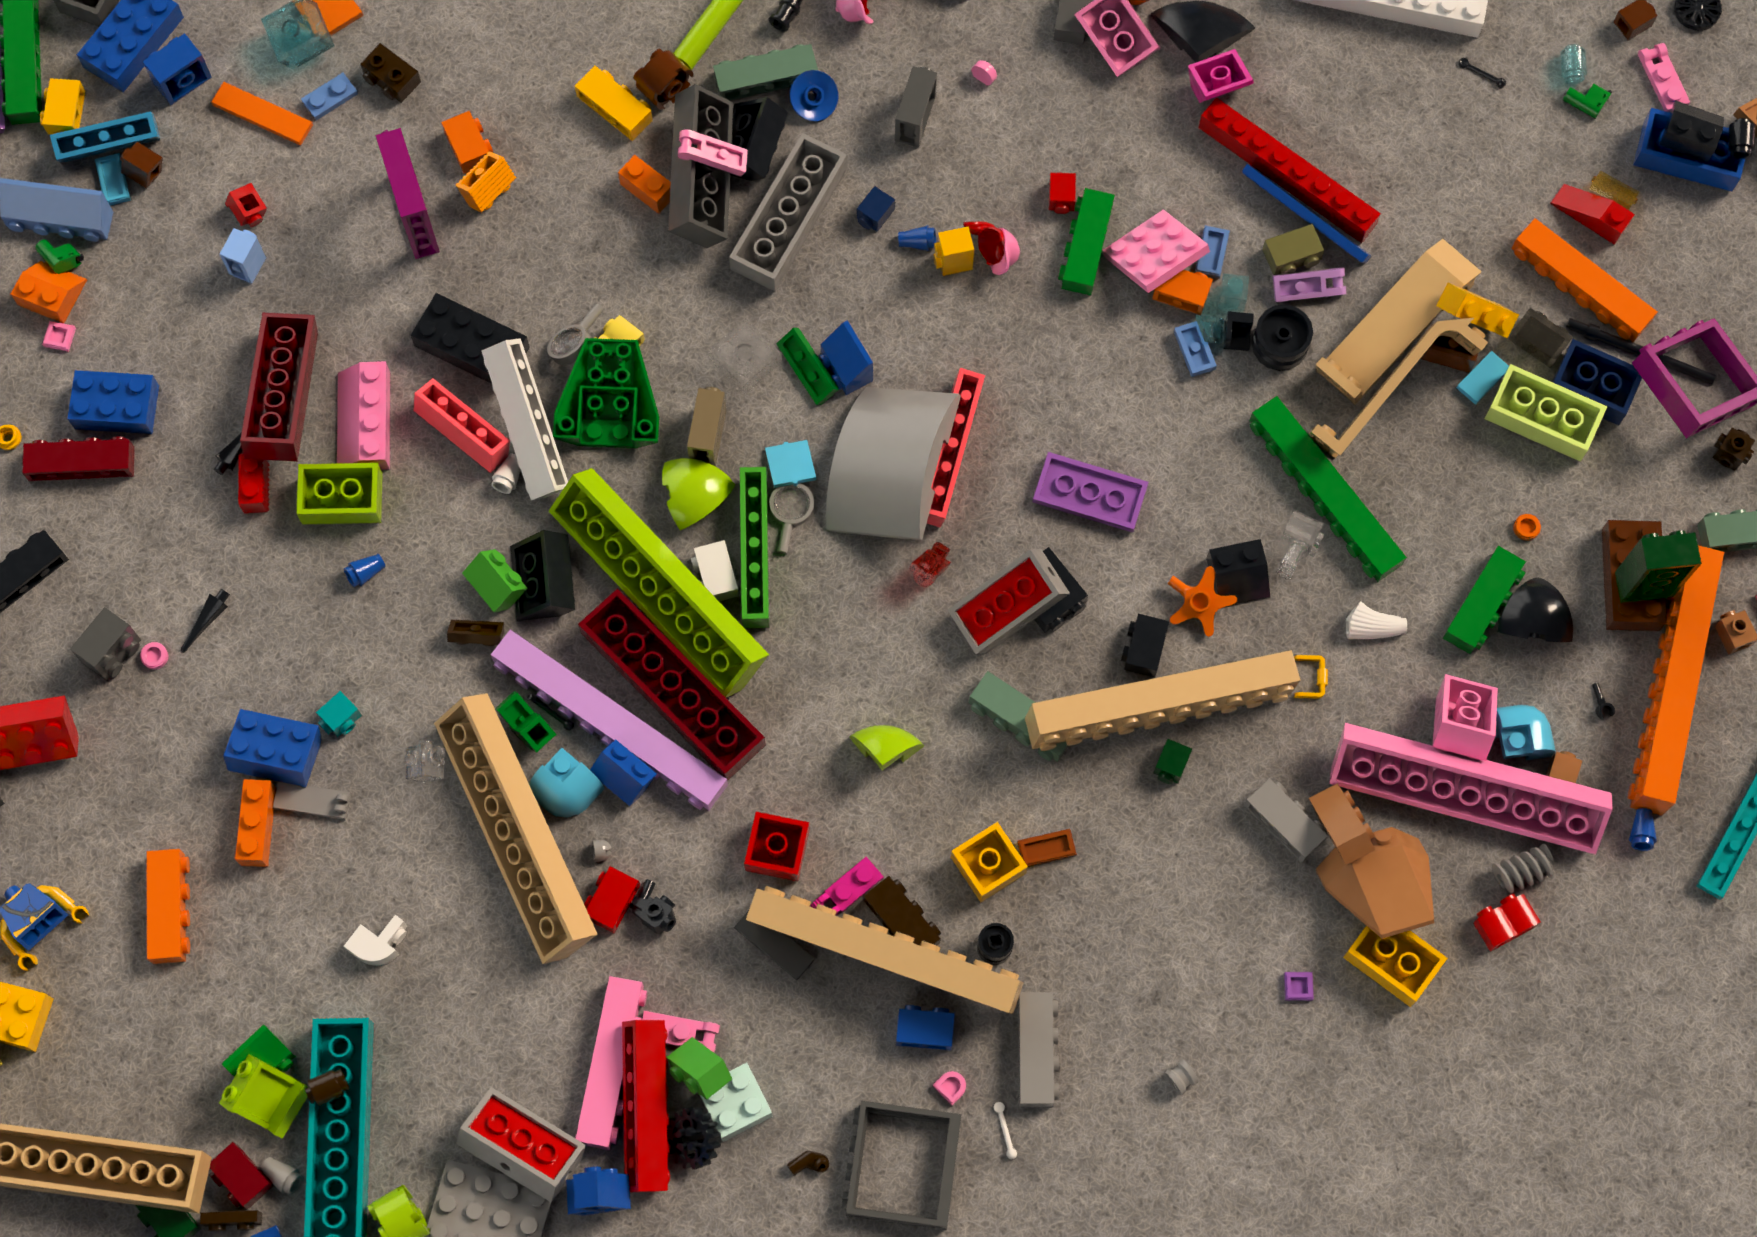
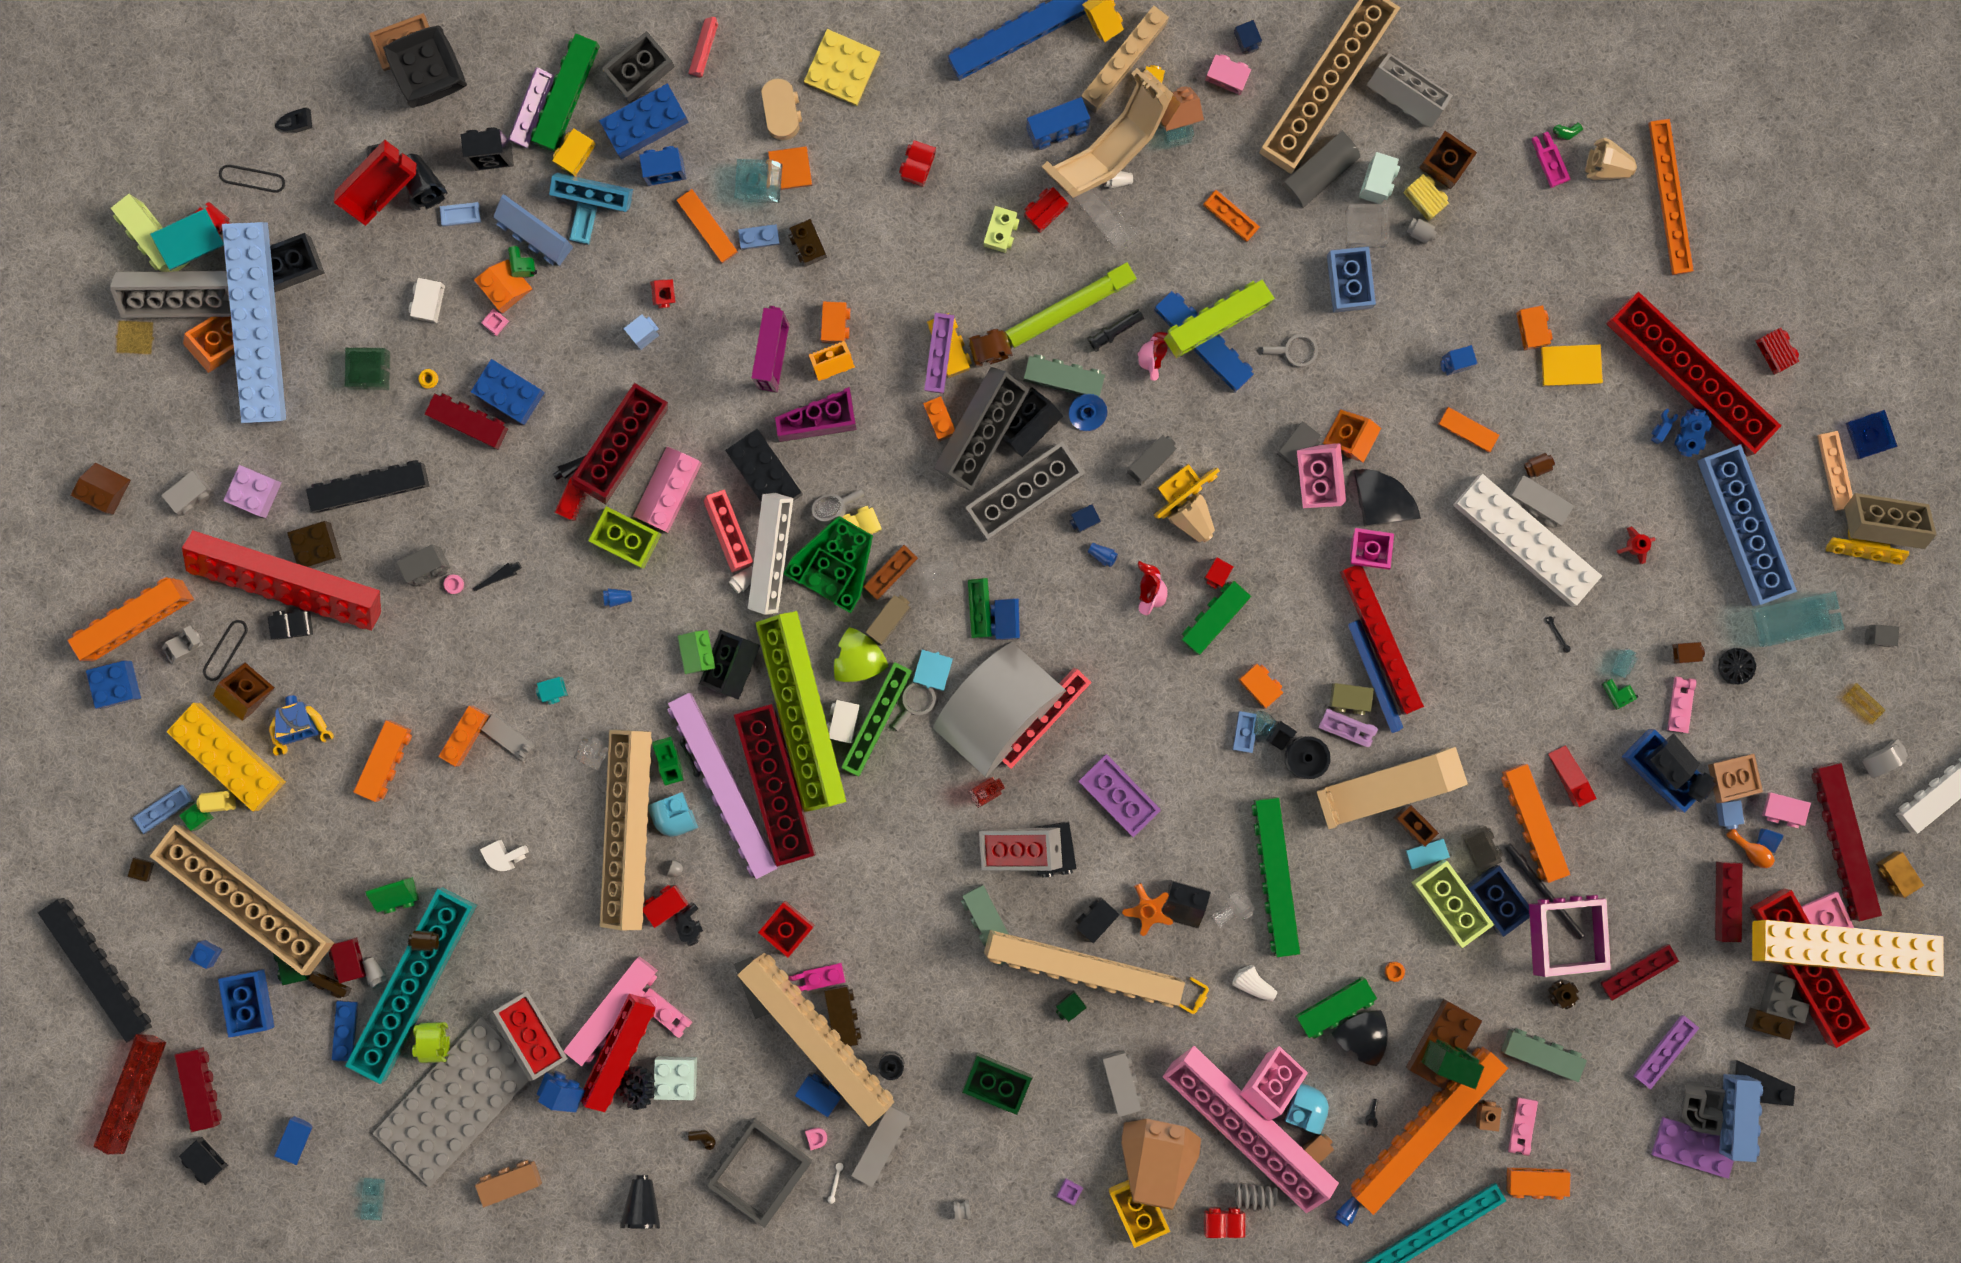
camera: 25 degrees right, 15 degrees up
(141, 164) = (606, 224): reddish brown brick -> none
(264, 1095) = (385, 921): lime panel -> none
(272, 748) = (498, 691): blue brick -> none
(475, 632) = (667, 679): dark brown plate -> none
(503, 251) = (818, 418): none -> magenta wedge
(607, 109) = (939, 353): none -> medium lavender plate
(622, 772) = (713, 828): blue brick -> none
(680, 379) = (890, 572): none -> dark orange plate
(698, 1068) = (661, 1048): bright green brick -> none
(712, 152) = (991, 430): bright pink plate -> none
(886, 744) = (892, 897): lime brick -> none
(954, 251) = (1120, 580): yellow brick -> none
(963, 123) = (1181, 486): none -> yellow bracket
(984, 72) = (1214, 455): bright pink tile -> none
(989, 862) = (915, 1011): yellow brick -> none
(1000, 147) = (1193, 518): none -> tan cone
(1047, 847) = (959, 1018): dark orange tile -> none
(1136, 897) = (997, 1083): none -> dark green brick
(1156, 251) = (1257, 651): bright pink plate -> none
(1212, 262) = (1296, 668): medium blue tile -> none
(1233, 292) = (1293, 707): clear light blue brick -> none
(1343, 823) = (1154, 1110): medium nougat brick -> none
(1457, 329) = (1390, 823): tan panel -> none
(1484, 311) = (1447, 812): yellow brick -> none
(1614, 190) = (1595, 770): clear yellow piece -> none

